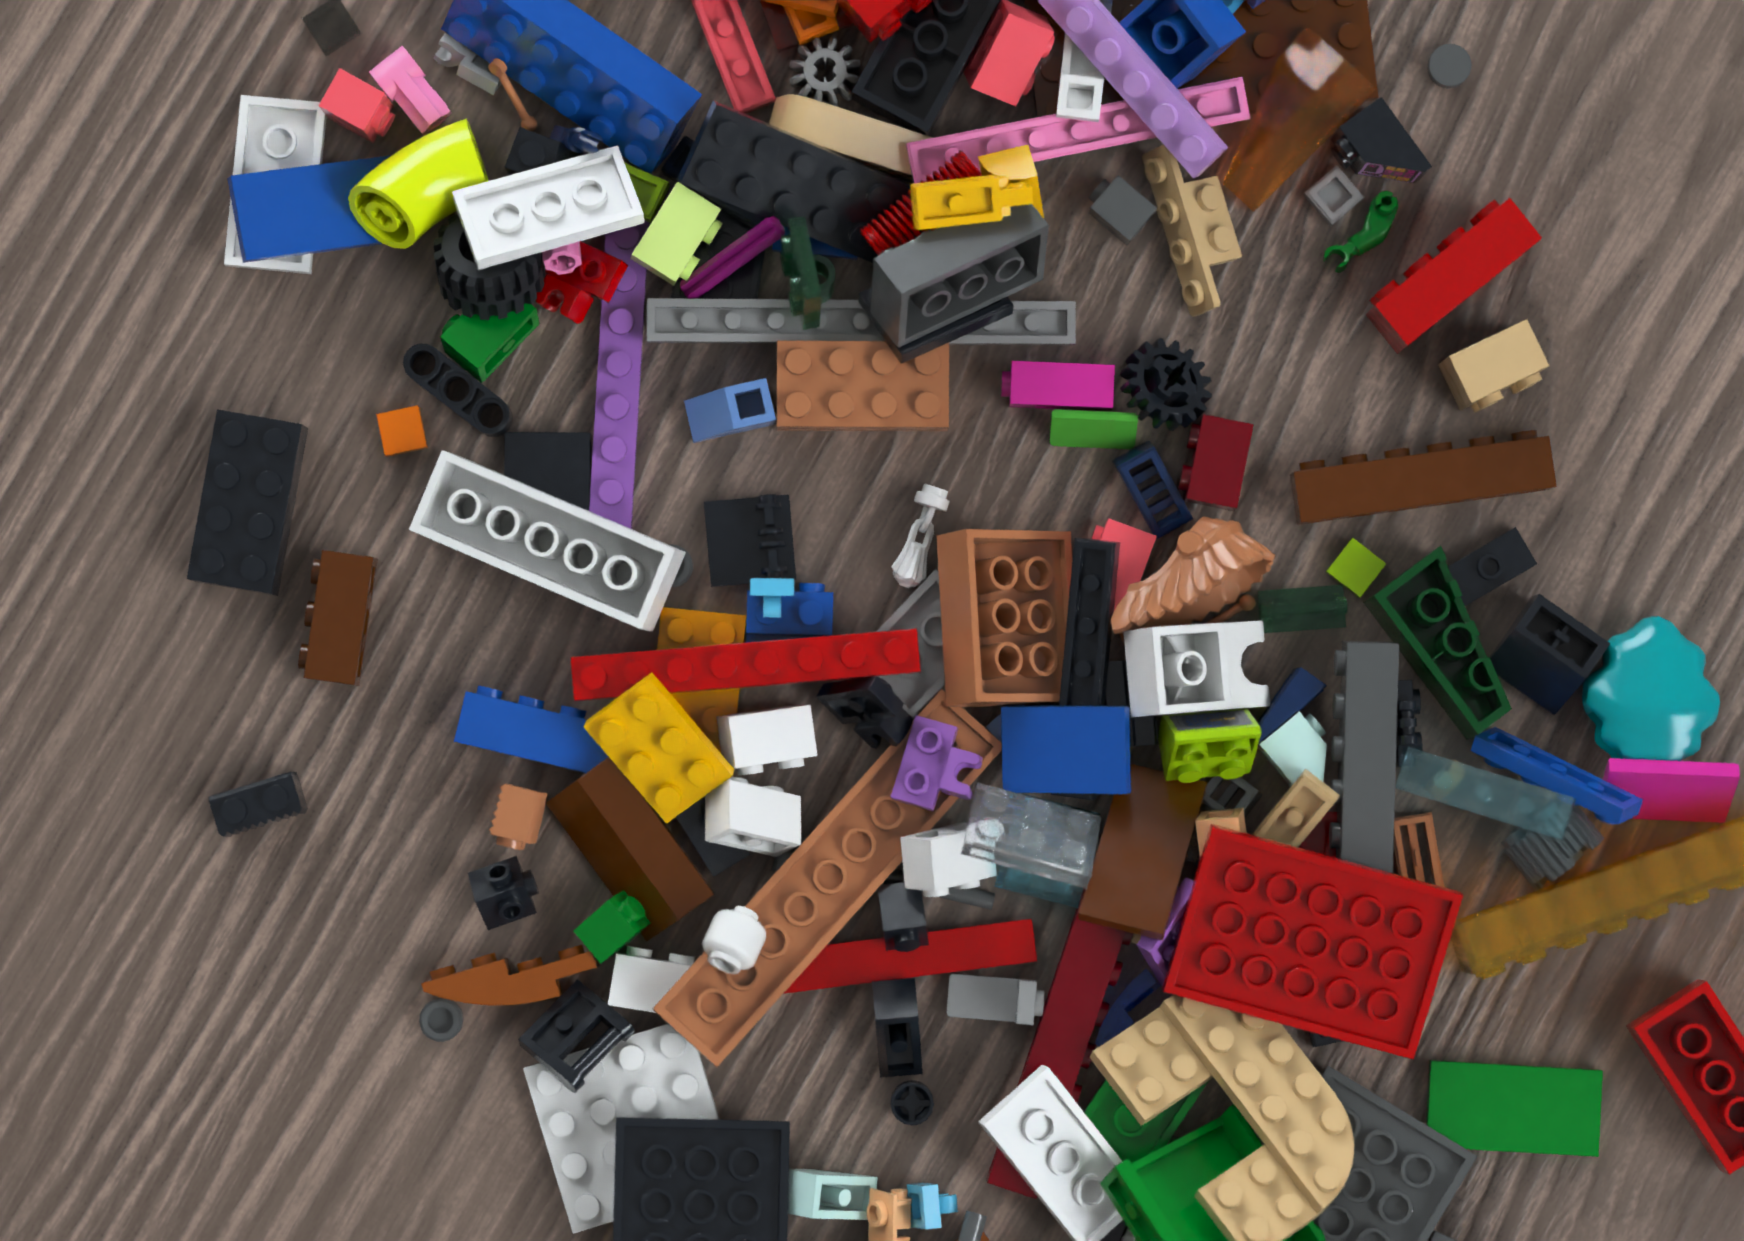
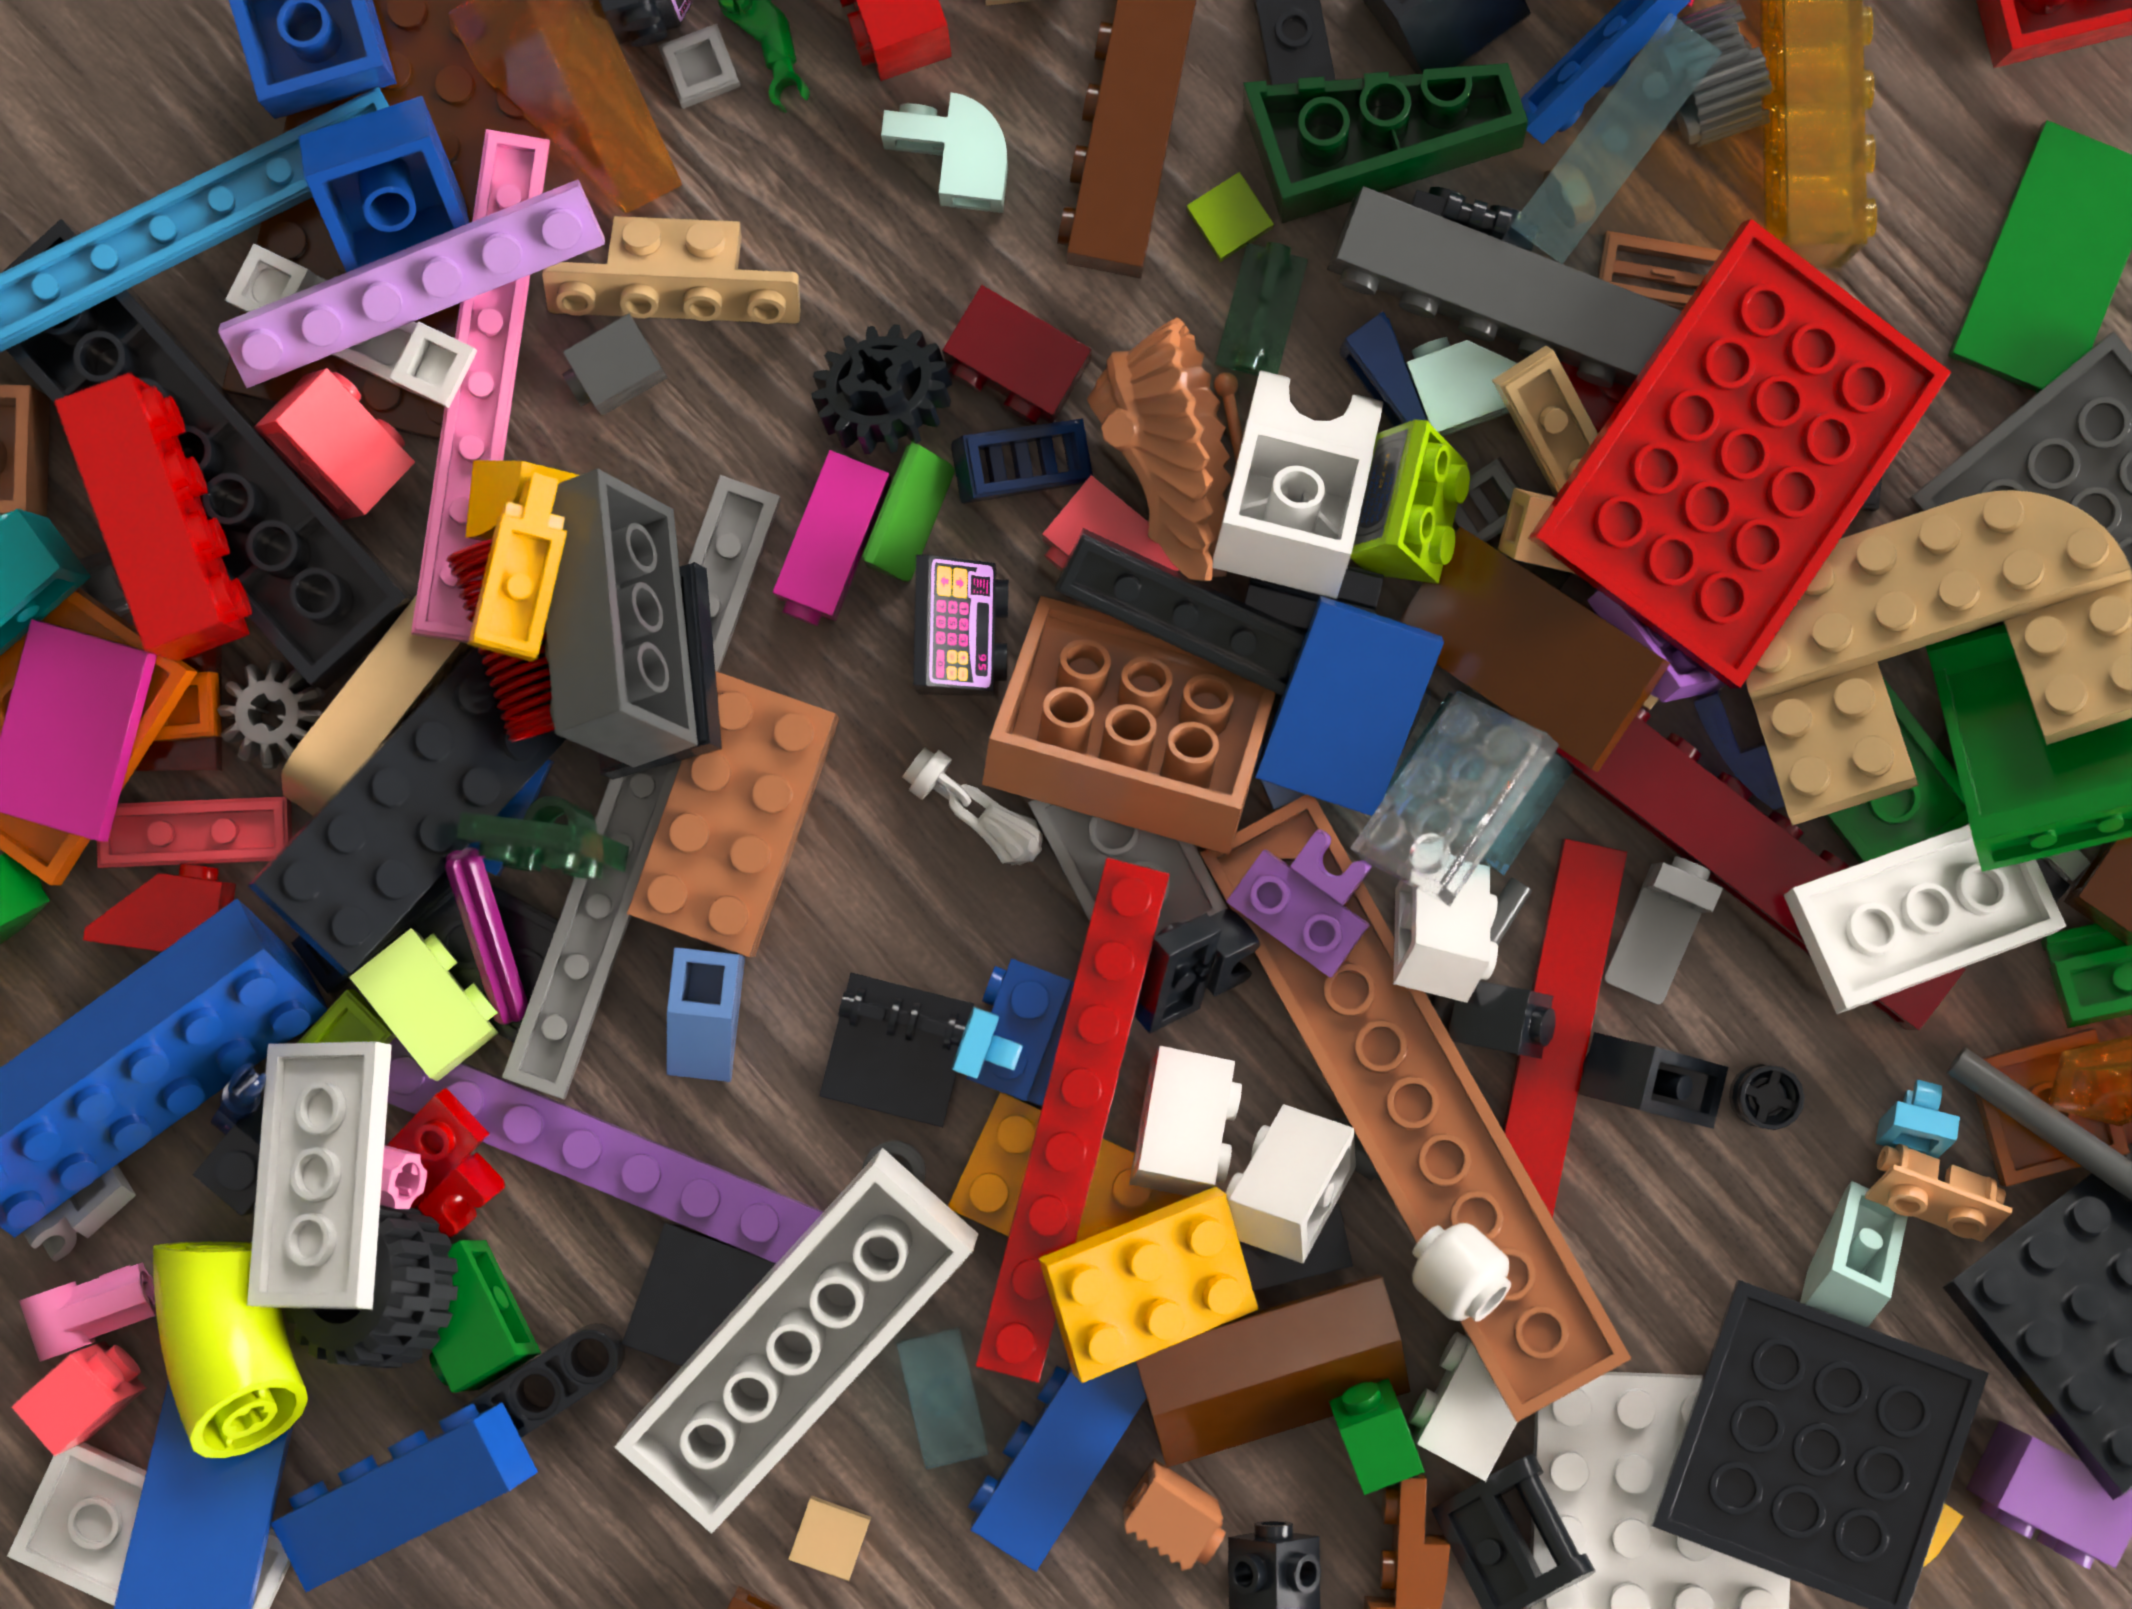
camera: 70 degrees left, 0 degrees up
(365, 329) = (404, 1496): none -> blue brick
(402, 431) = (568, 1489): orange tile -> none
(427, 605) = (829, 1538): none -> tan tile
(498, 68) = (98, 1175): nougat hinge -> none
(540, 646) = (942, 1398): none -> clear light blue plate
(678, 49) = (163, 909): none -> red slope
(1031, 485) = (957, 626): none -> black slope
(1341, 388) = (971, 147): none -> light aqua brick

